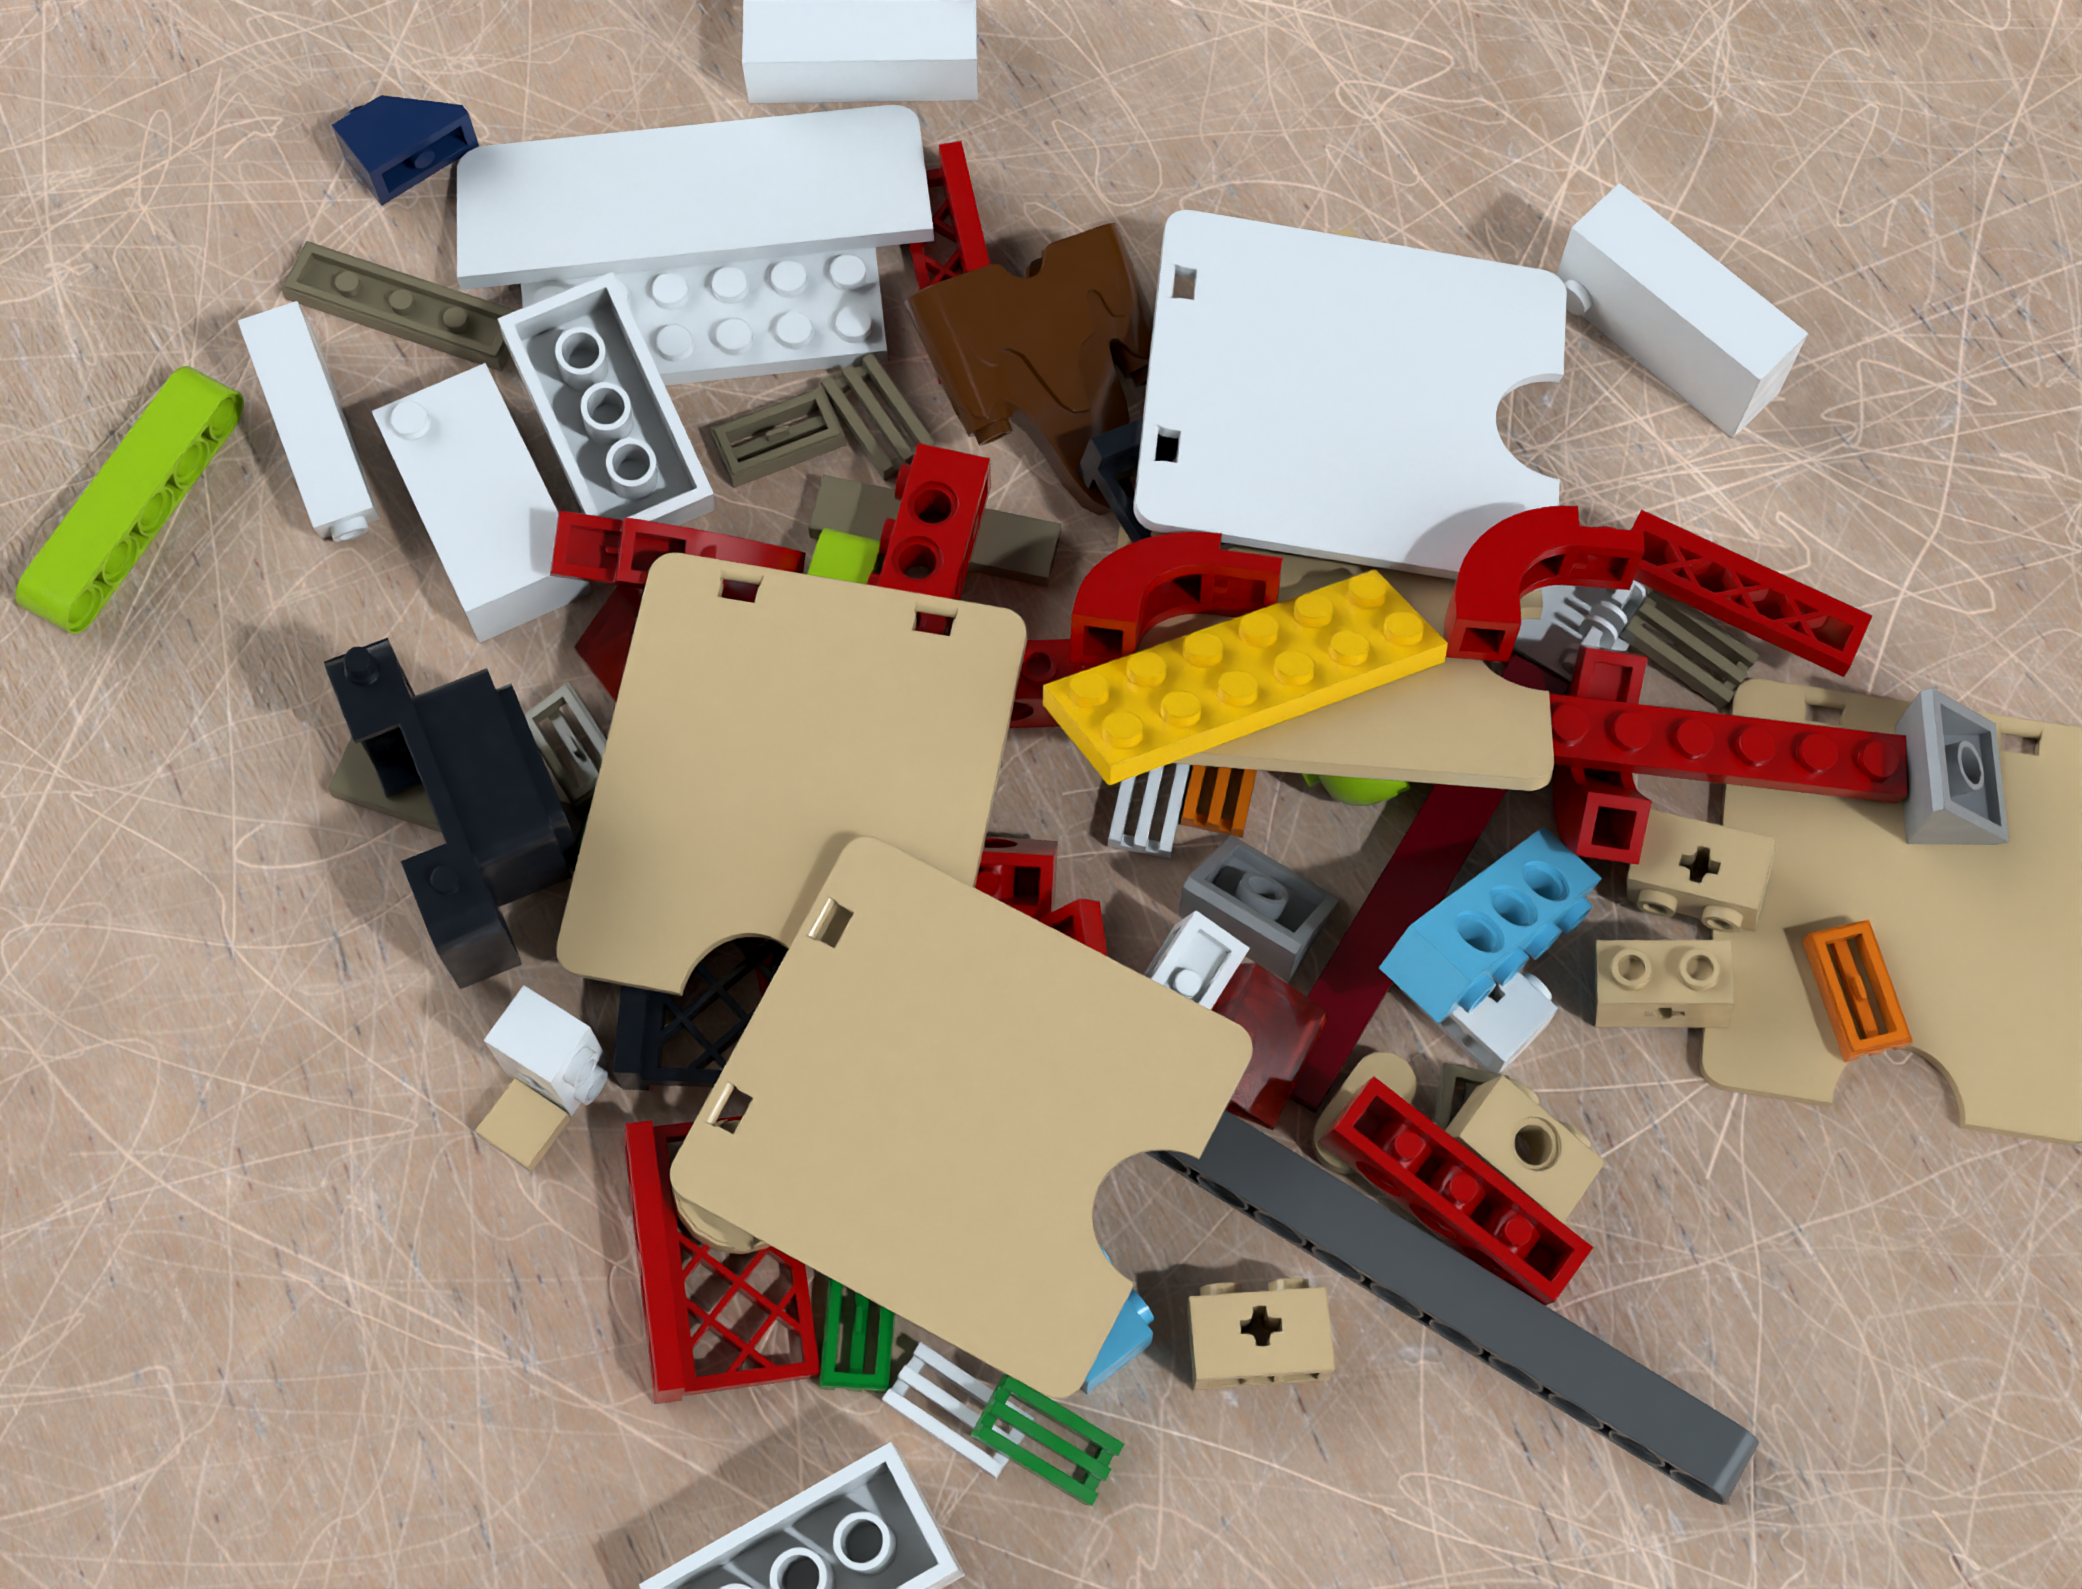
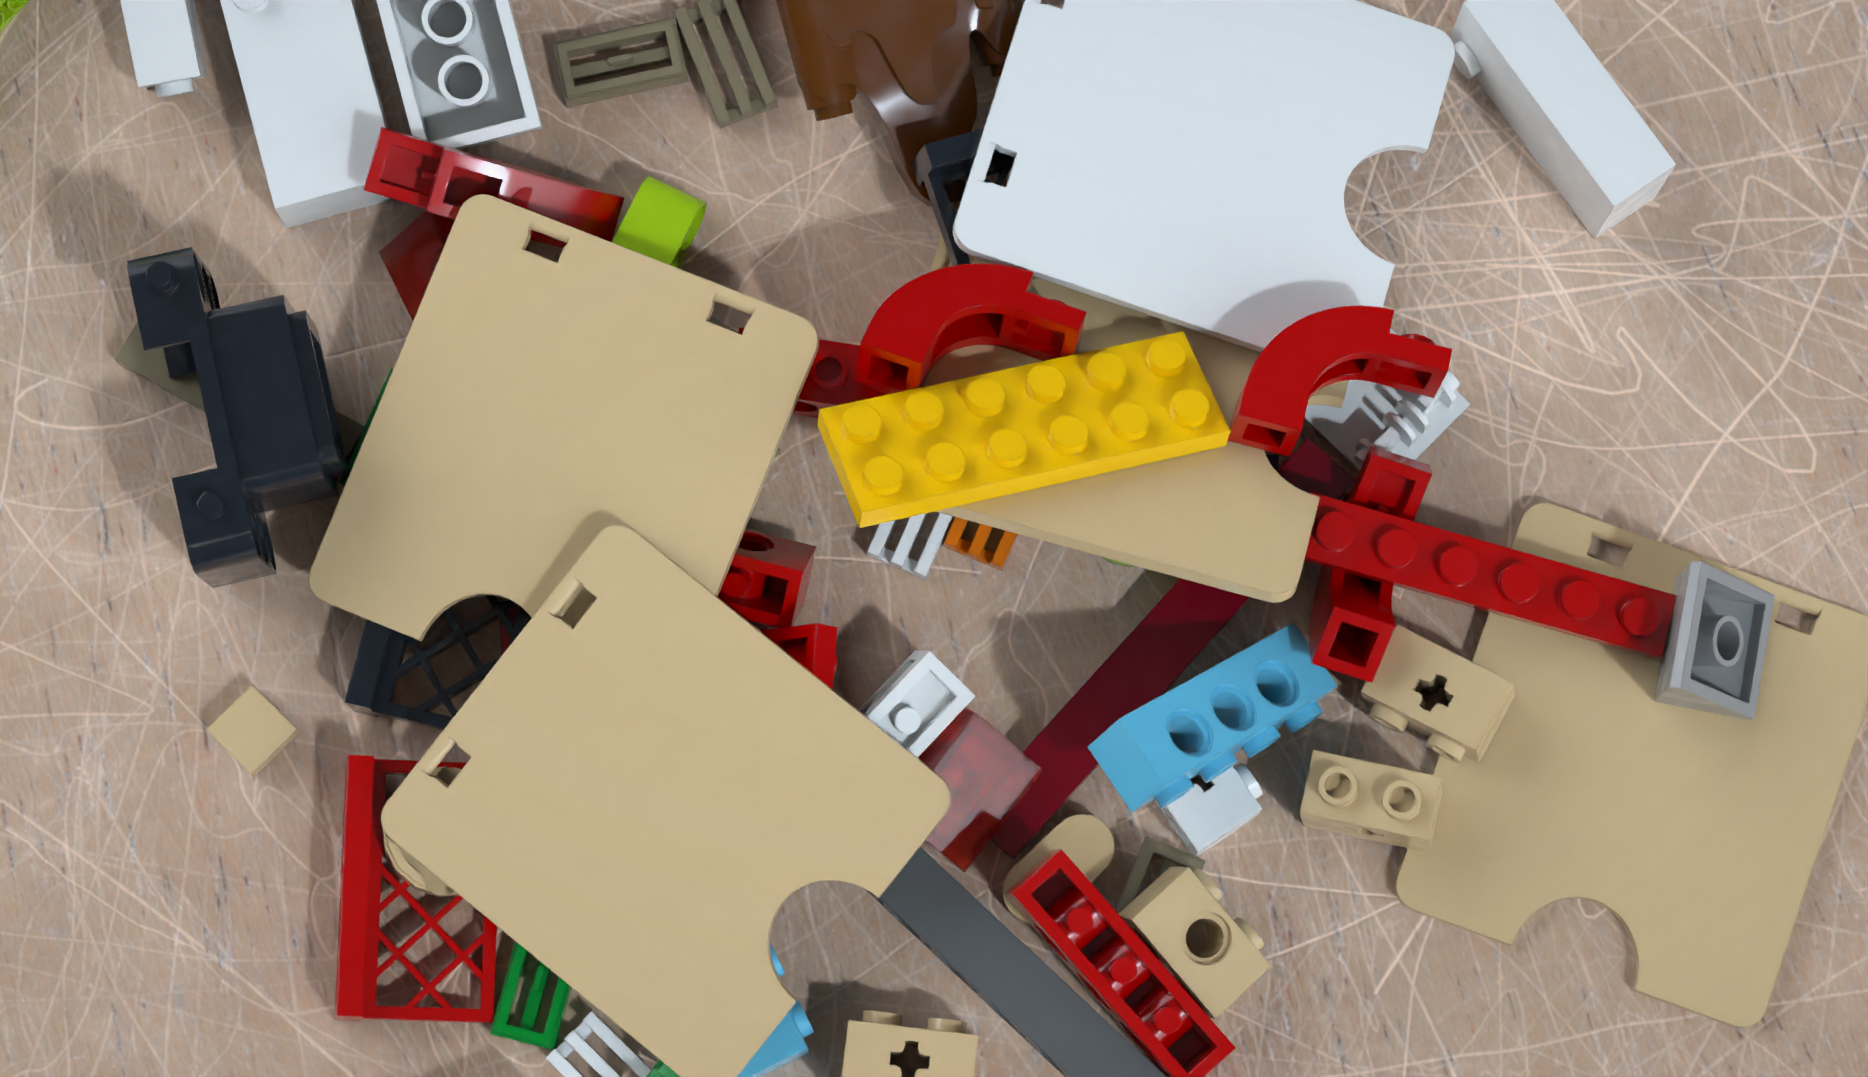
camera: 10 degrees right, 10 degrees up
(549, 1051) = (287, 671): white brick -> none
(578, 796) = (357, 415): dark tan tile -> none
(941, 483) = (765, 151): red brick -> none
(1005, 546) = (762, 194): dark tan tile -> none
(1259, 904) = (1000, 644): light grey slope -> none
(1695, 637) = (1506, 440): dark tan tile -> none
(1749, 595) = (1552, 419): red fence -> none
(1833, 998) = (1537, 842): orange tile -> none

